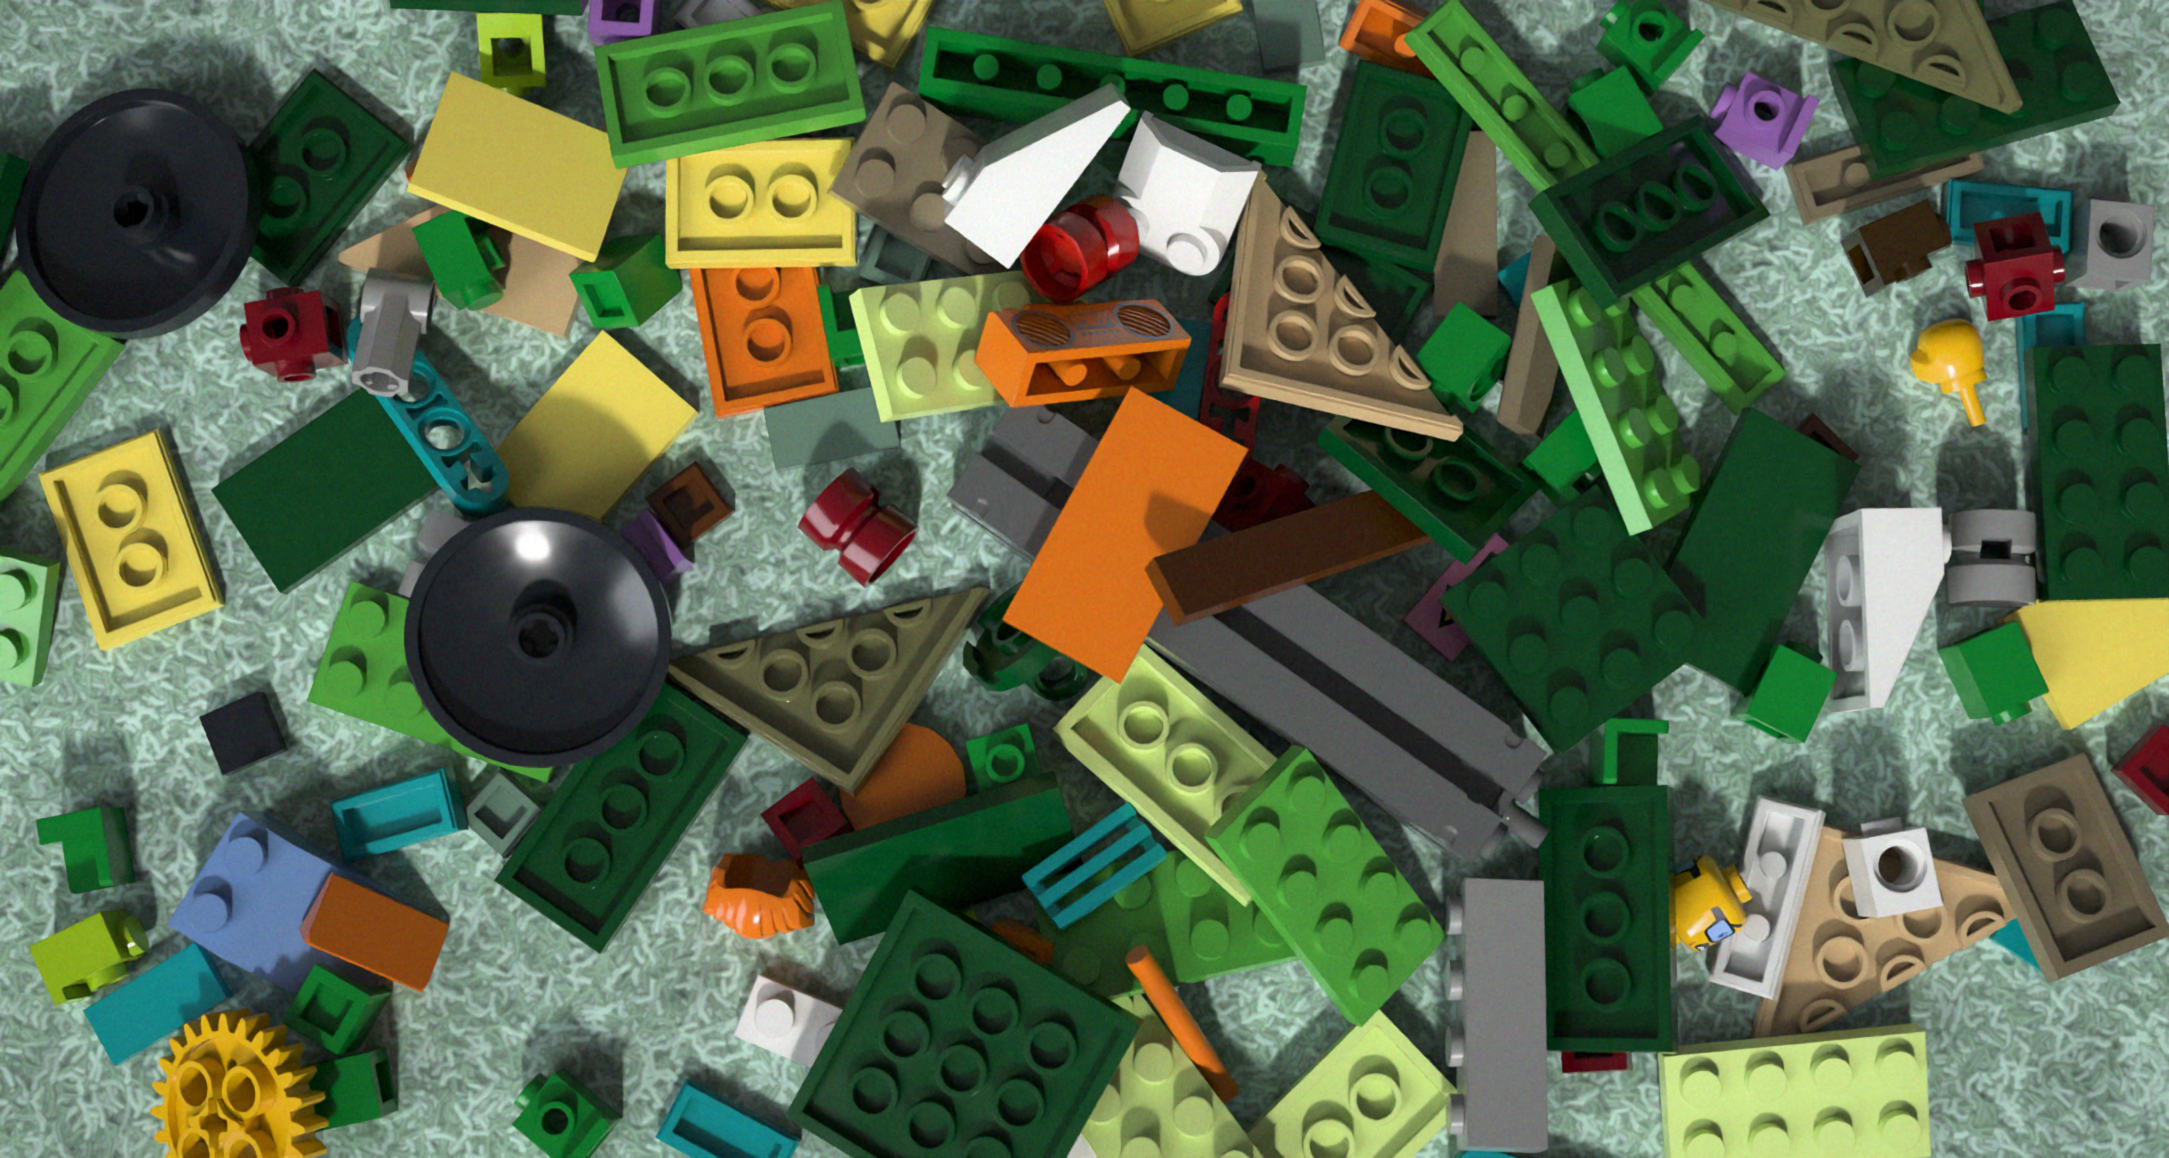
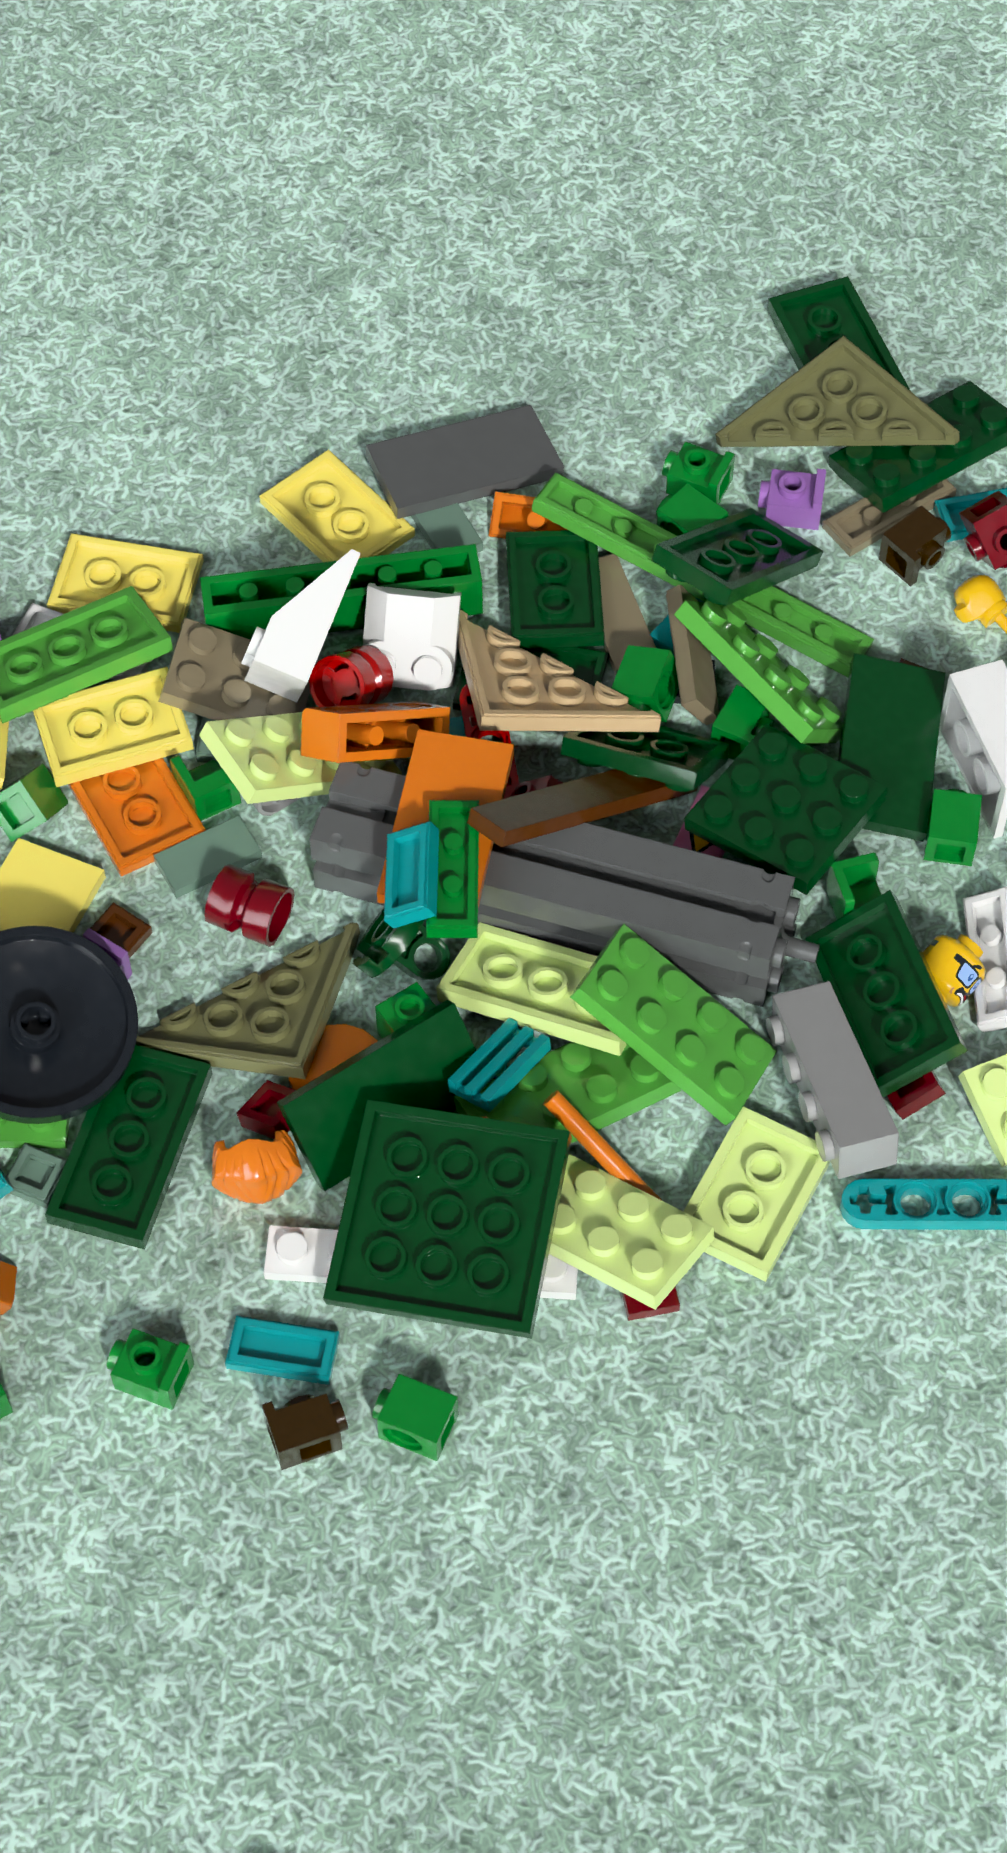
camera: 20 degrees left, 25 degrees down
(1050, 619) = (411, 875): none -> teal tile
(1107, 620) = (456, 871): none -> green tile

